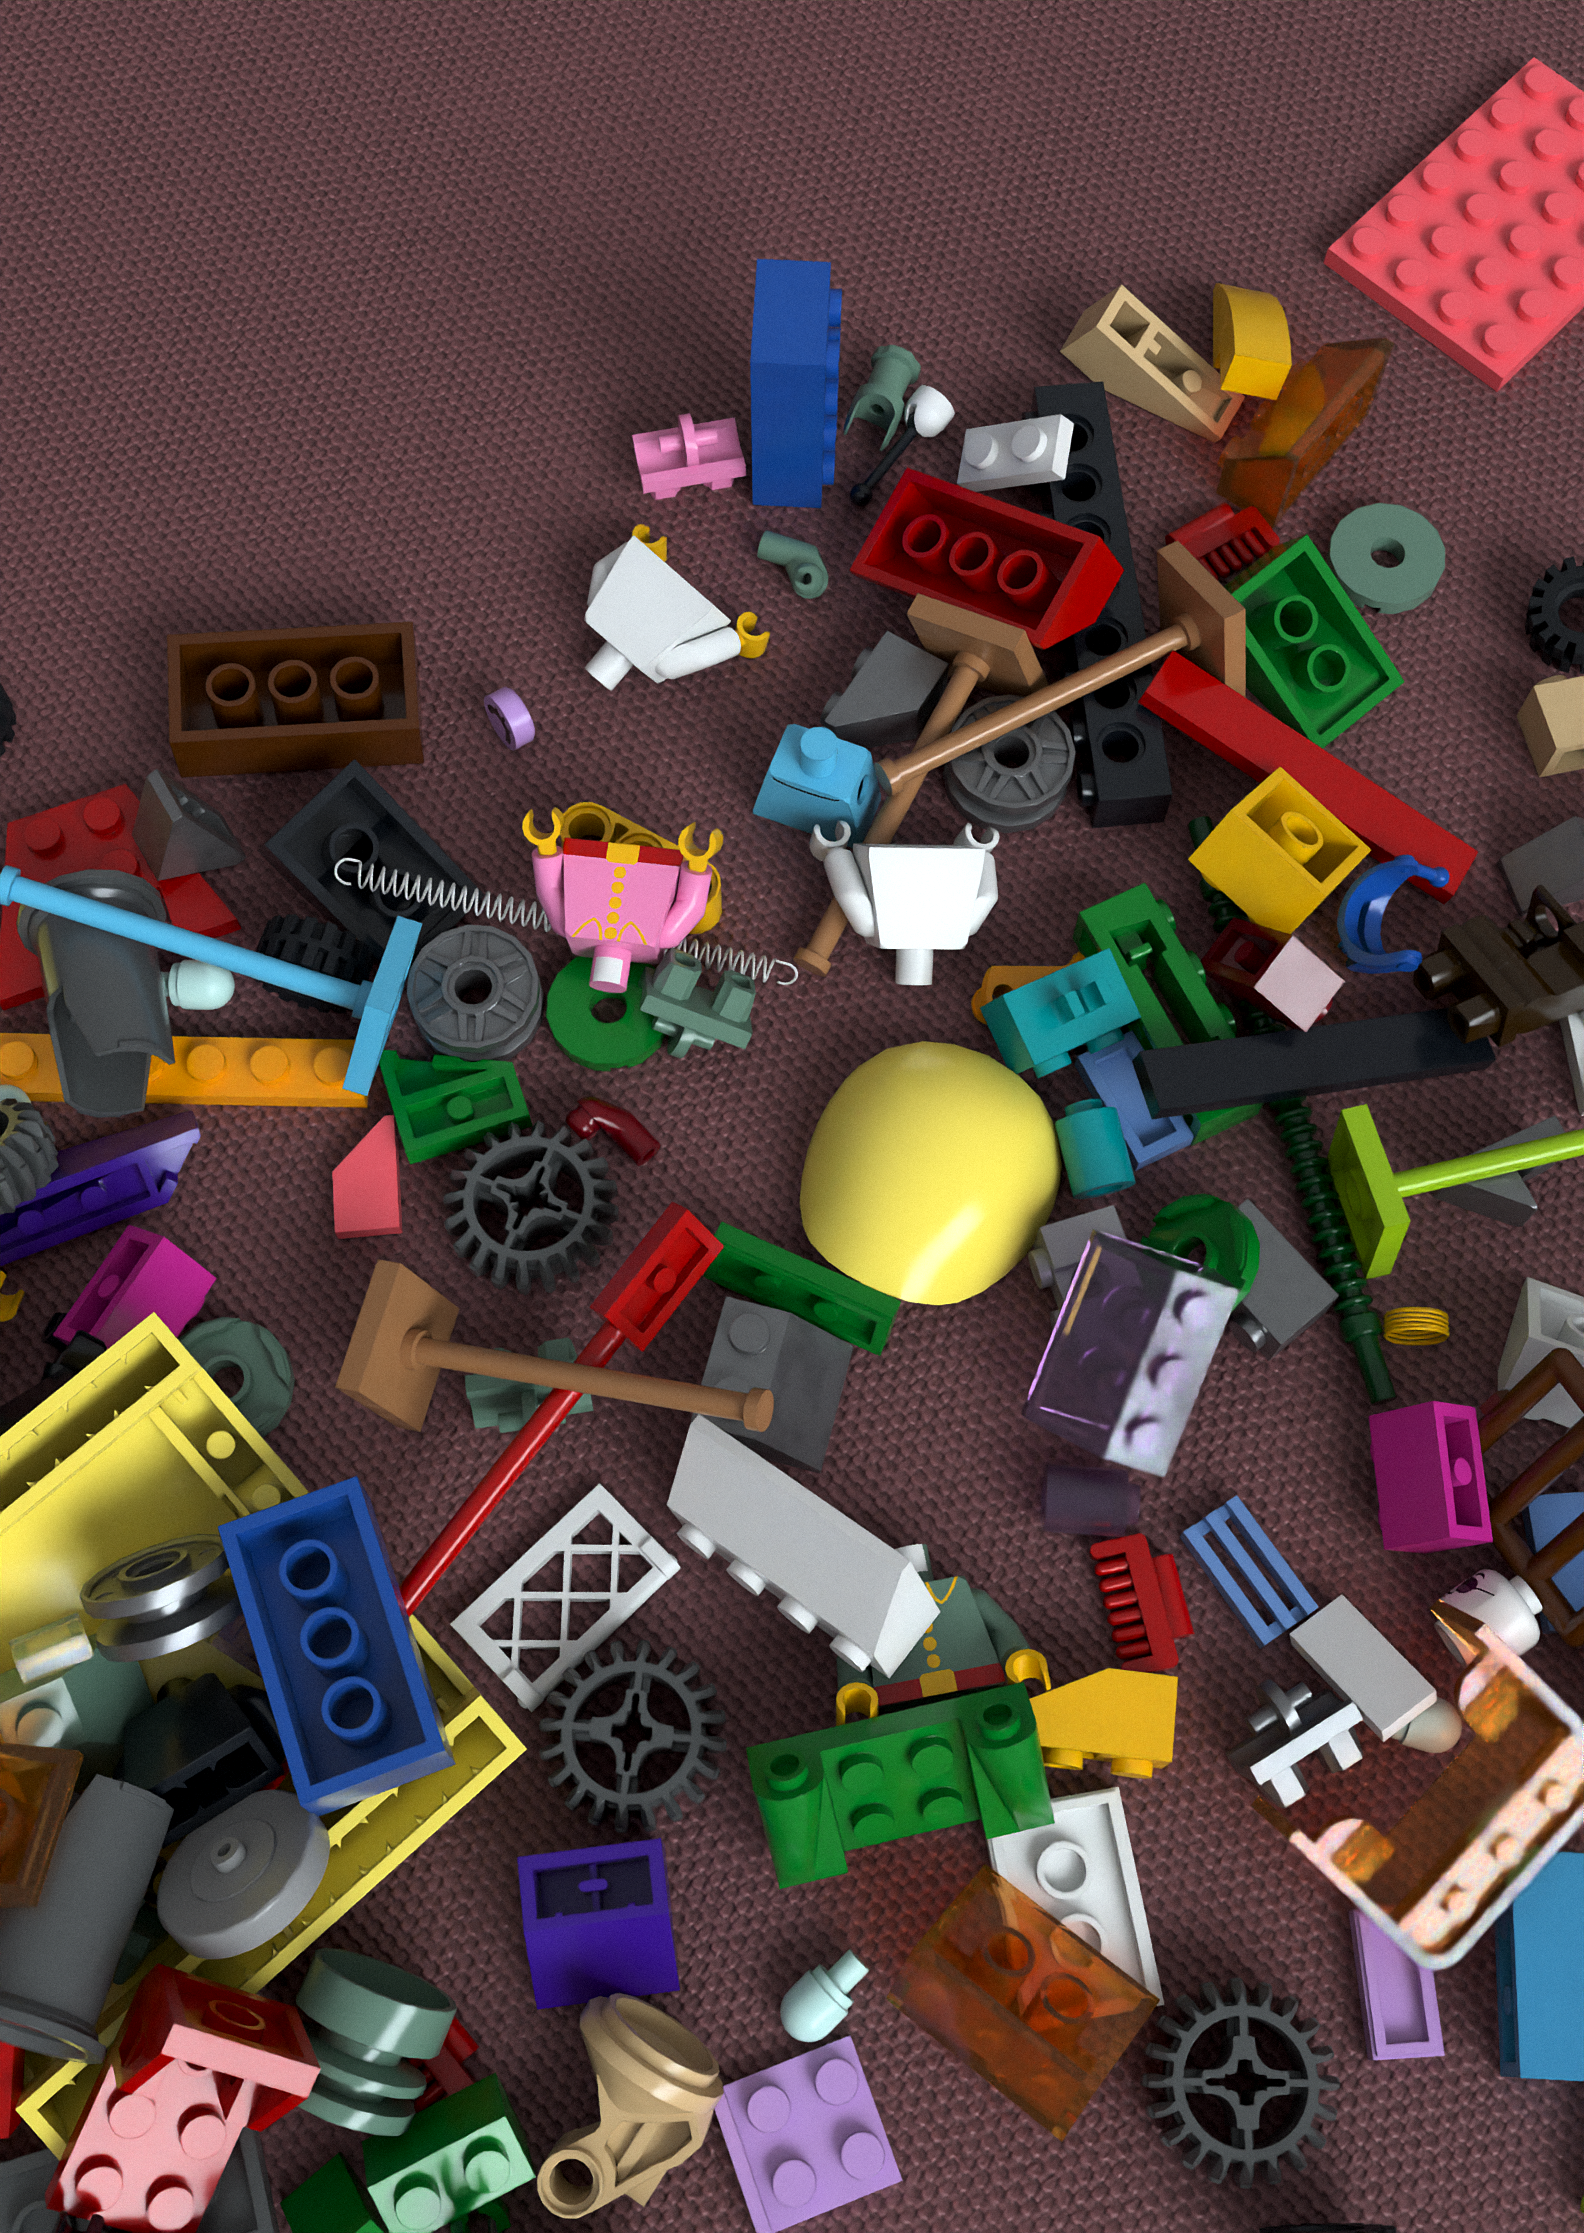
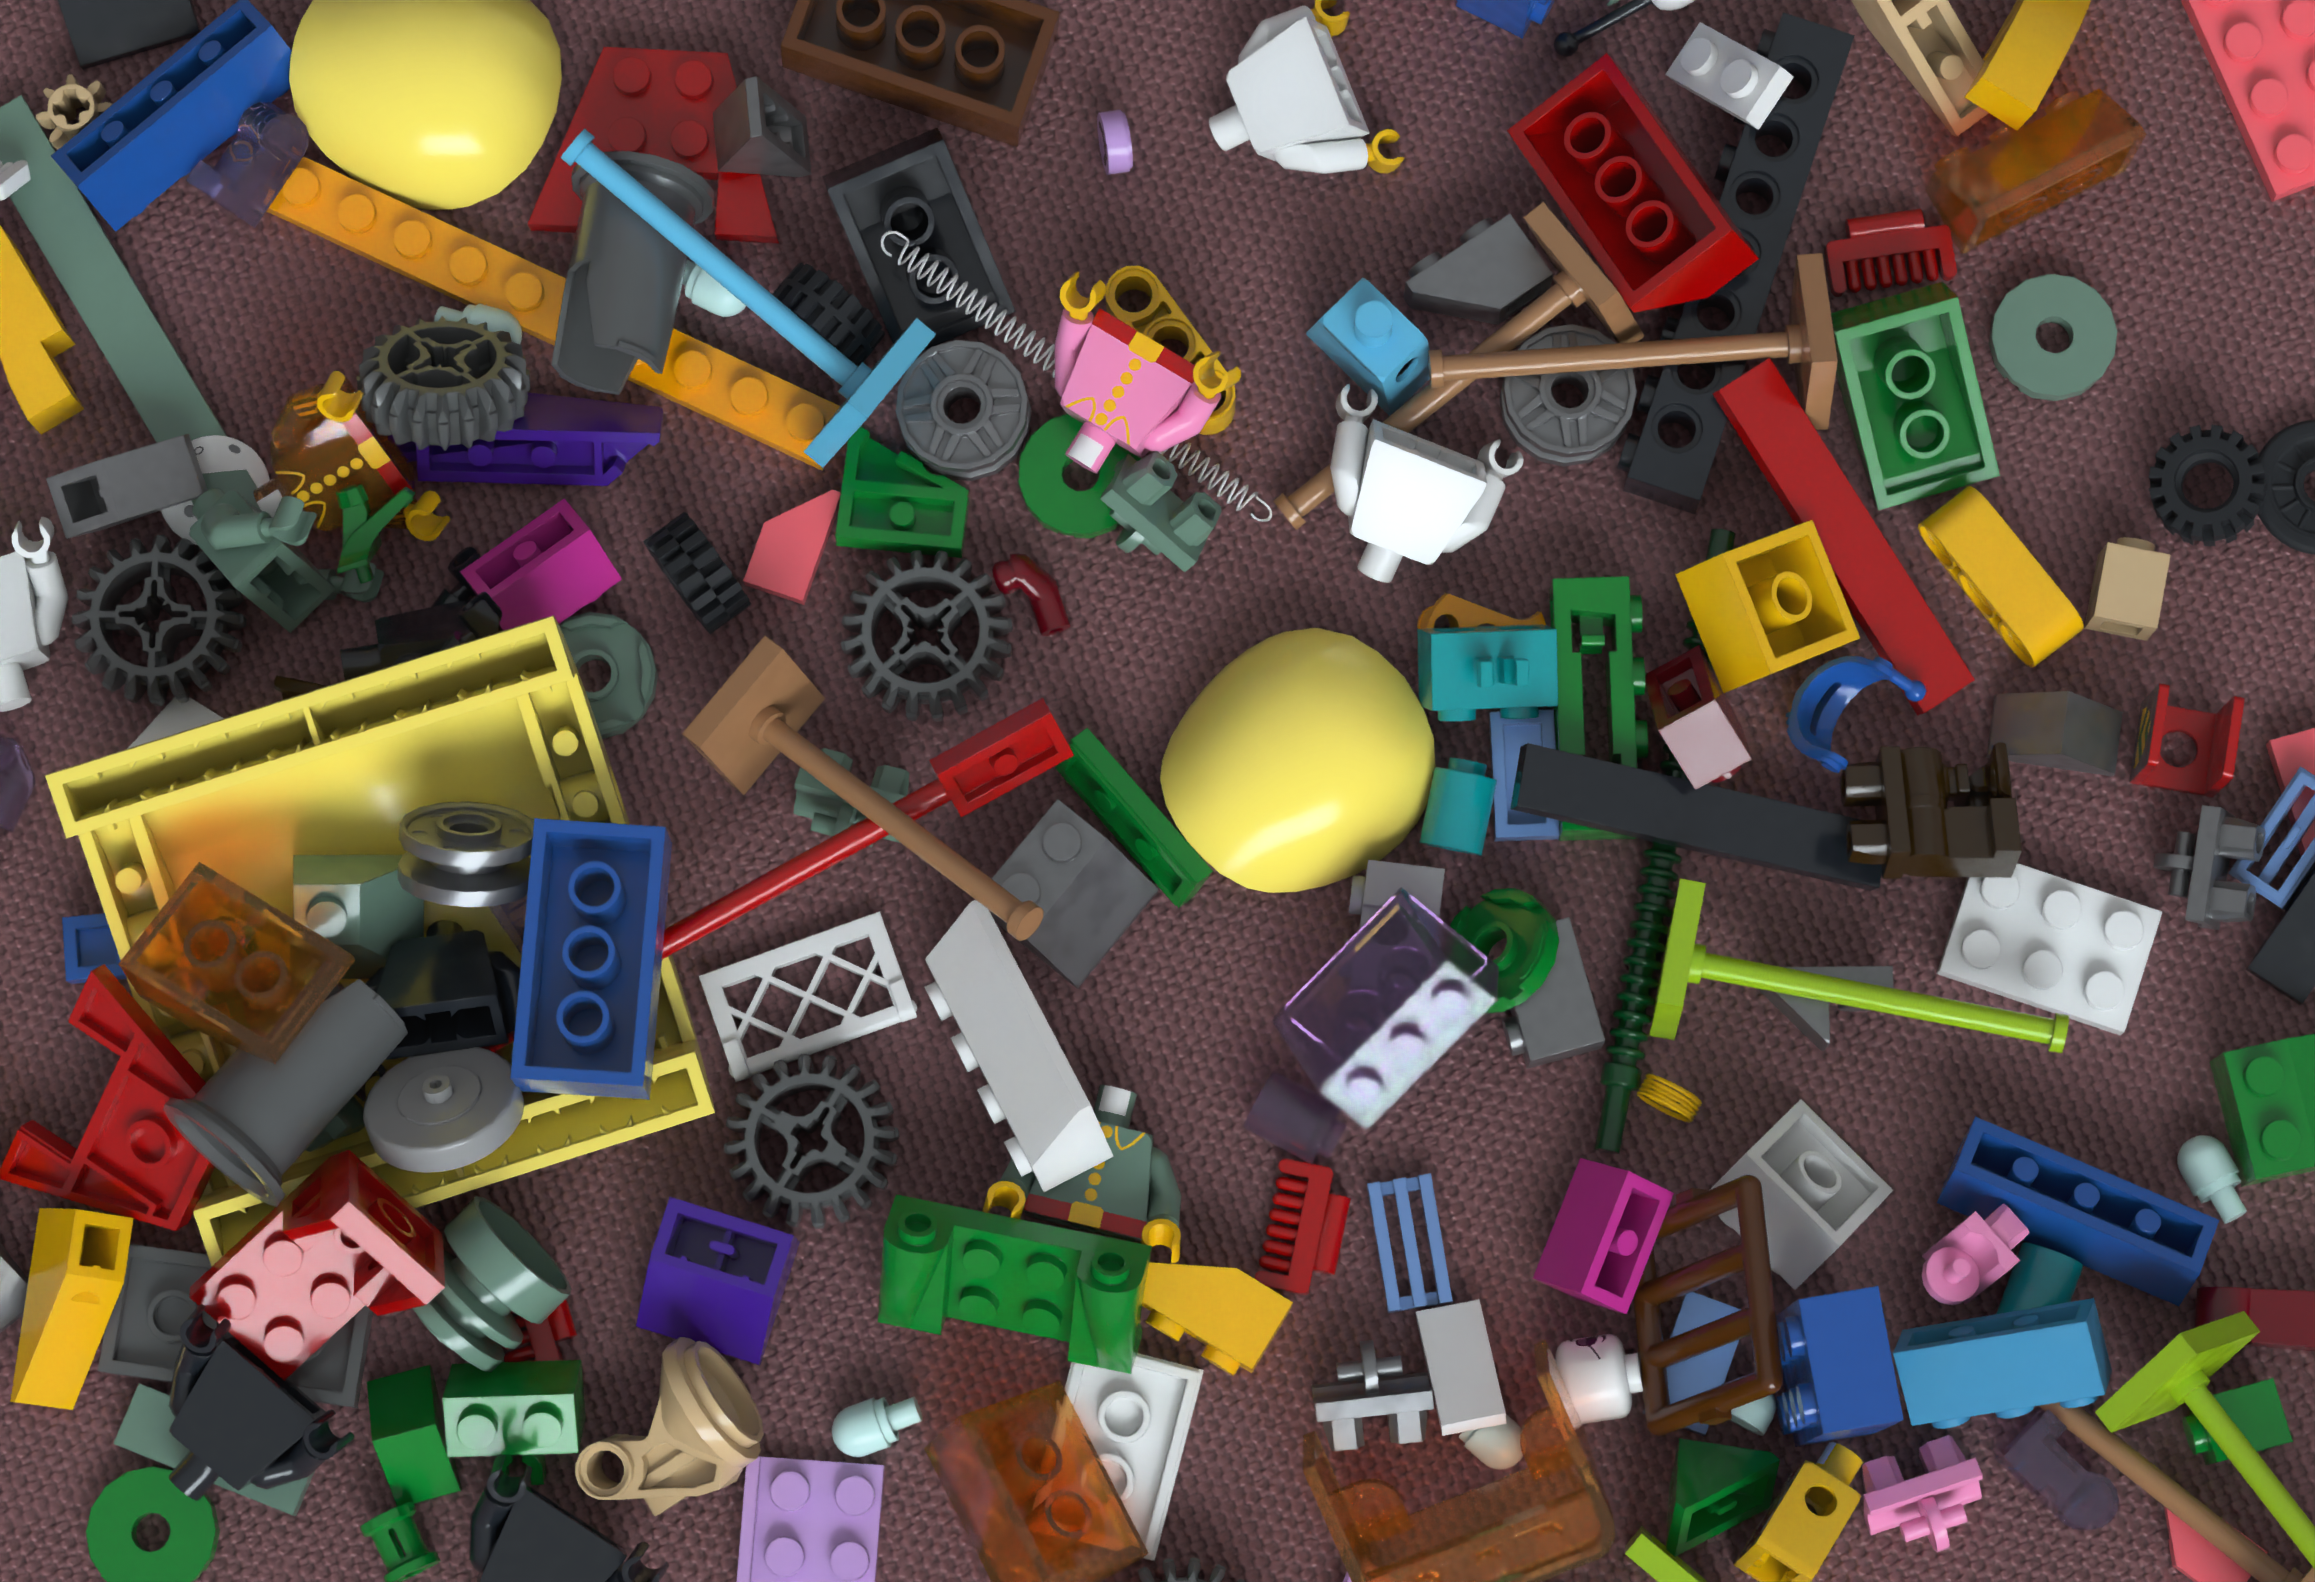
camera: 30 degrees right, 10 degrees up
(51, 1649) = (358, 854): clear tile -> none
(287, 1238) = (697, 572): none -> black tyre
(800, 560) = (1472, 93): sand green arm -> none
(1453, 758) = (2000, 576): none -> yellow beam

